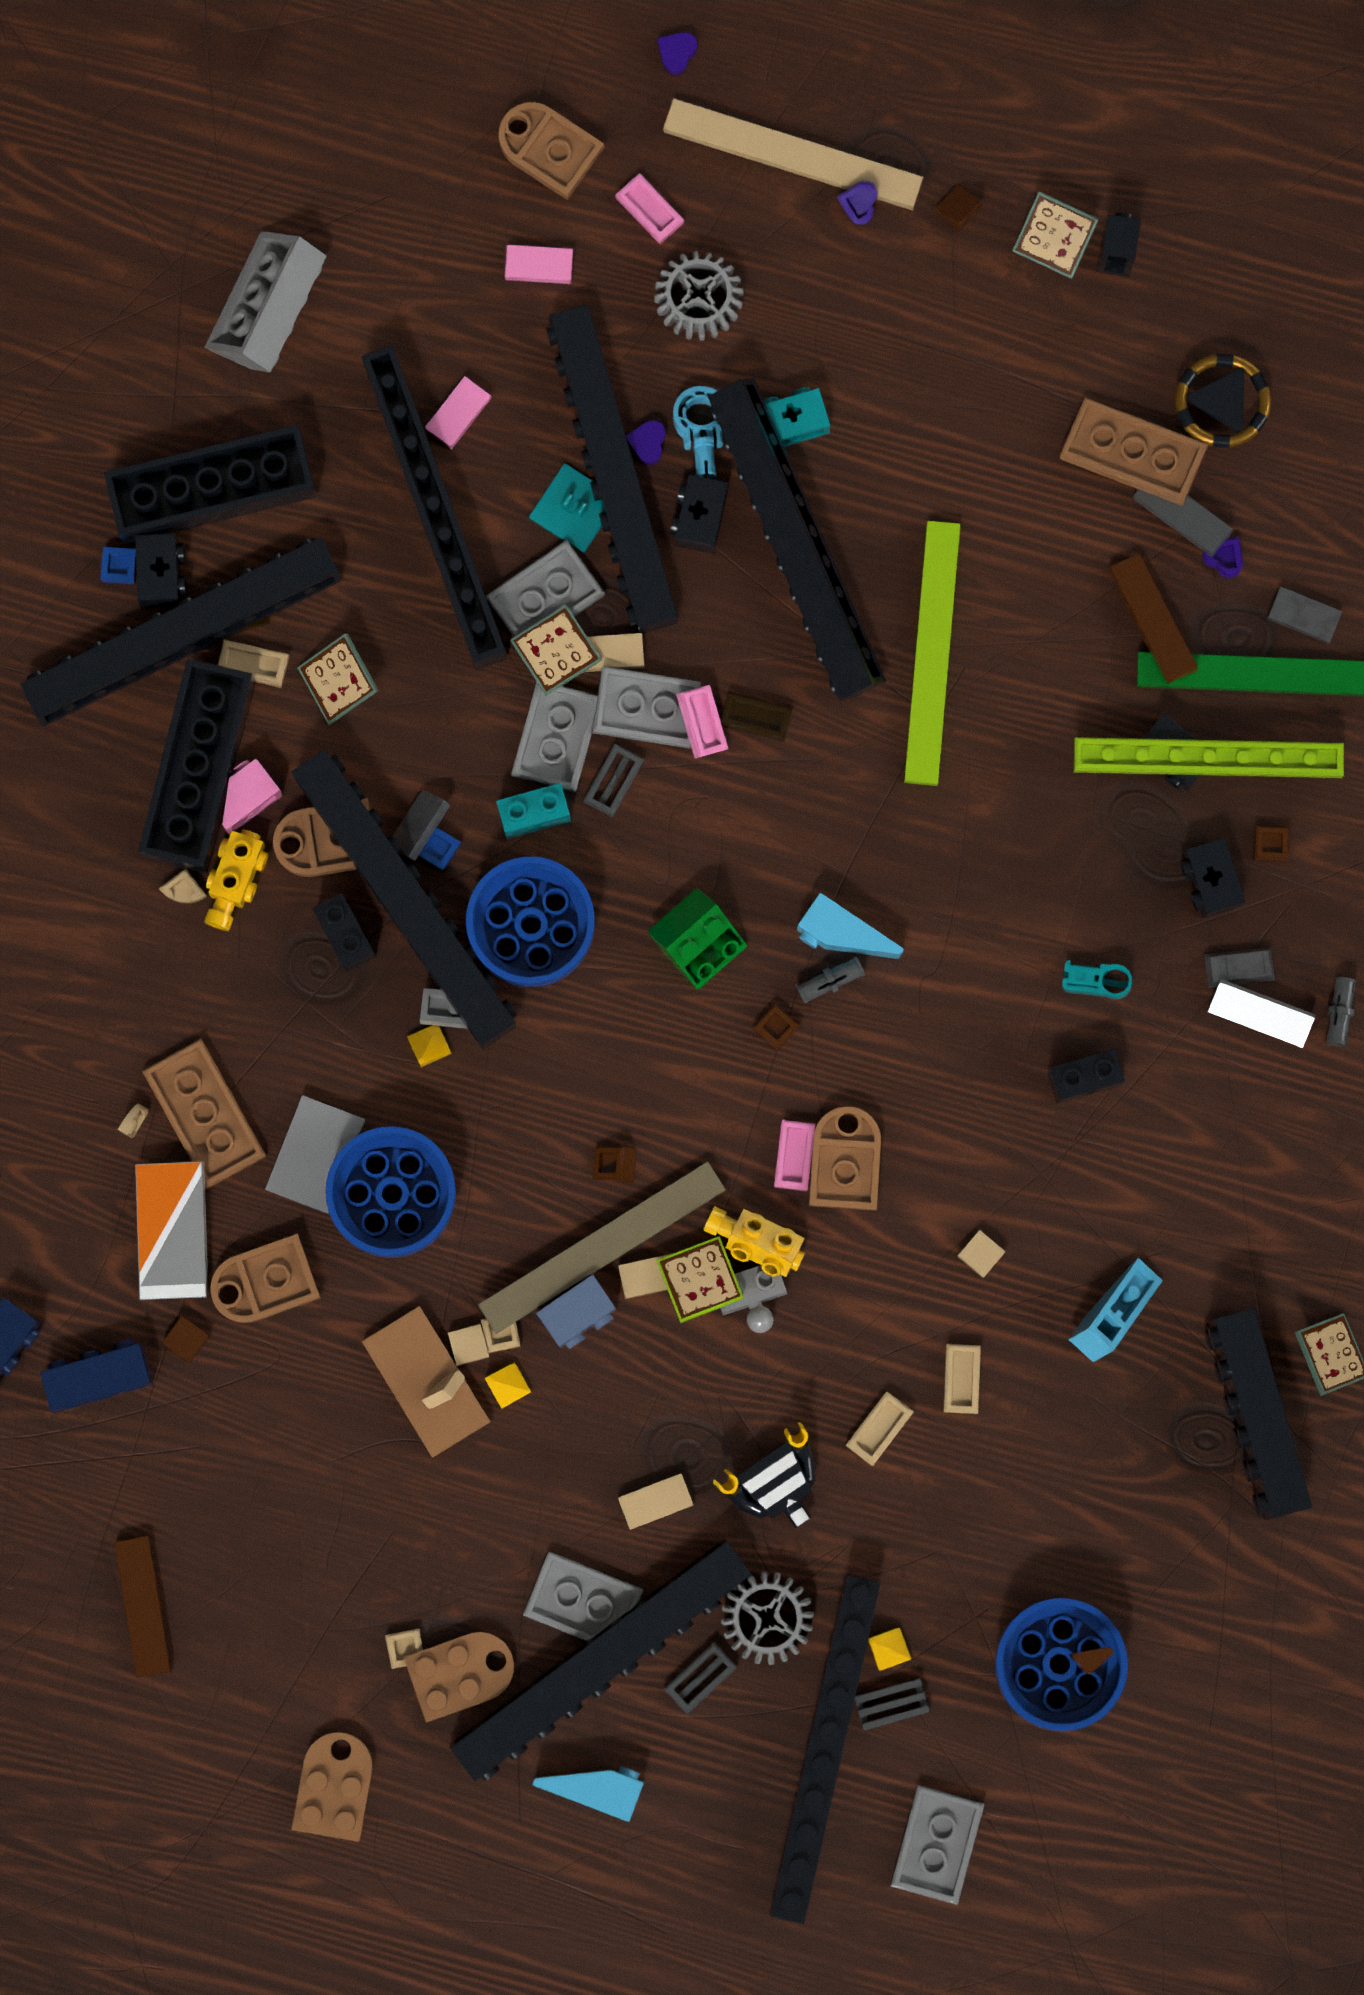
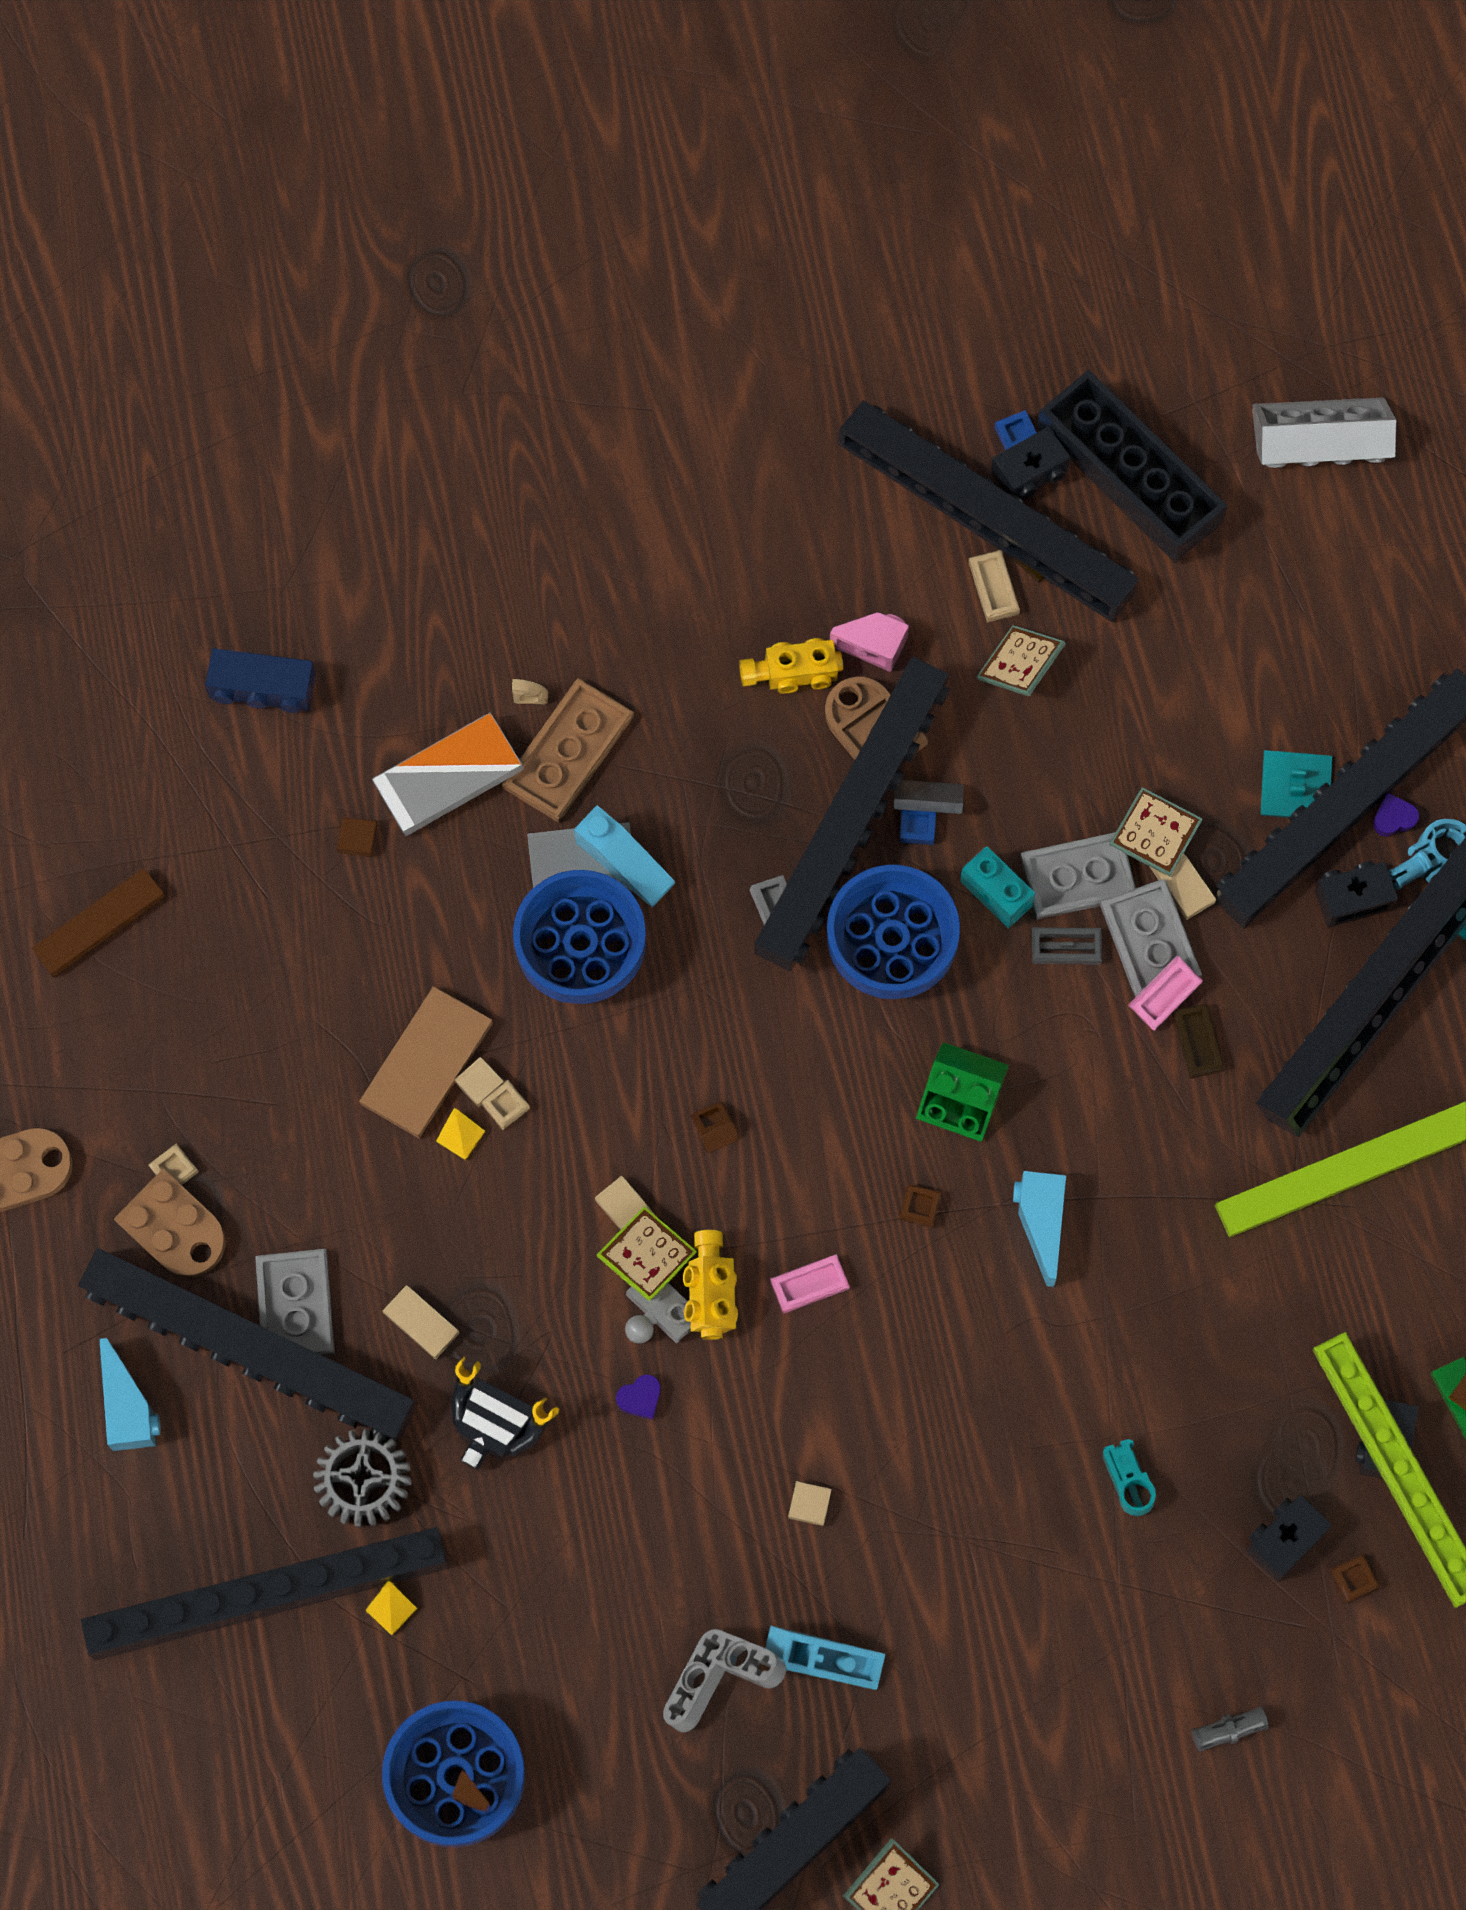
camera: 65 degrees right, 10 degrees down
(96, 1376) = (283, 777): dark blue brick -> none
(183, 889) = (760, 630): tan tile -> none
(197, 766) = (880, 576): black brick -> none
(267, 1281) = (445, 877): medium nougat plate -> none
(335, 1116) = (622, 856): none -> medium azure slope
(344, 932) = (794, 781): black brick -> none
(429, 1045) = (733, 909): yellow slope -> none
(434, 508) = (1222, 661): black brick -> none
(444, 1389) = (425, 1077): tan tile -> none
(458, 412) = (1322, 641): bright pink tile -> none
(544, 588) = (1209, 794): light grey tile -> none
(577, 1312) = (558, 1160): sand blue brick -> none
(601, 1247) = (631, 1153): dark tan tile -> none
(678, 1698) = (305, 1457): dark grey tile -> none
(818, 1348) = (640, 1398): none -> dark purple tile
(830, 979) = (991, 1231): dark grey pin -> none
(845, 1163) = (826, 1333): medium nougat plate -> none
(879, 1428) = (594, 1493): tan tile -> none
(920, 1696) = (360, 1660): dark grey tile -> none
(937, 1844) = (227, 1750): light grey tile -> none
(962, 1379) = (682, 1546): tan tile -> none
(1078, 1393) = (720, 1661): none -> light grey beam
(1085, 1076) = (1030, 1512): black brick -> none
(1240, 966) = (1218, 1609): flat silver tile -> none
(1261, 1013) = (1185, 1651): tile -> none

